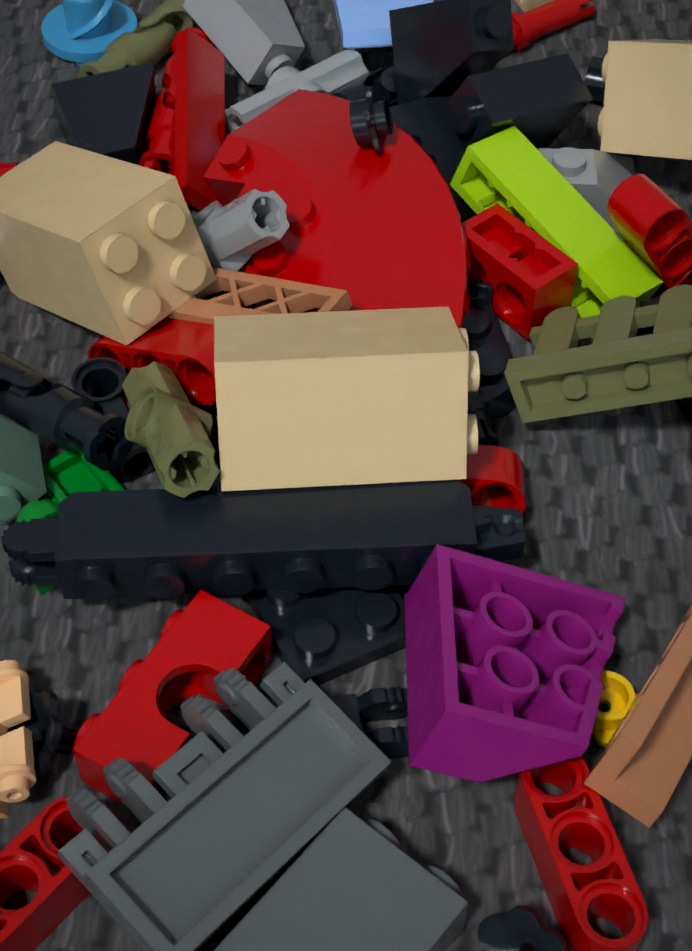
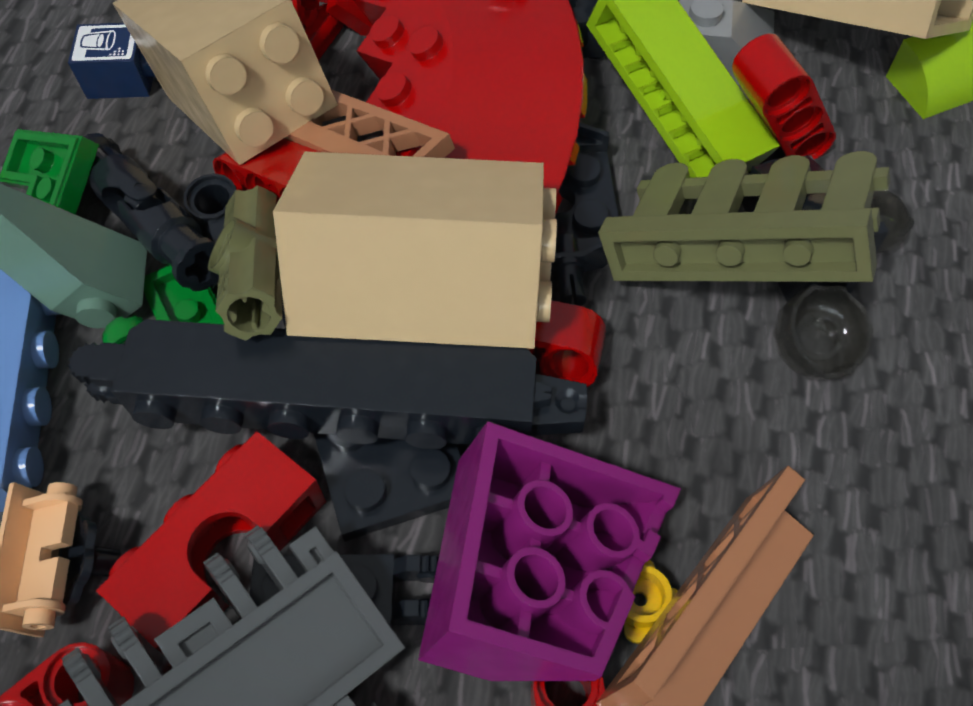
camera: 10 degrees right, 10 degrees up
(241, 227) = (362, 56): light grey piece -> none
(523, 267) = (641, 117): red brick -> none

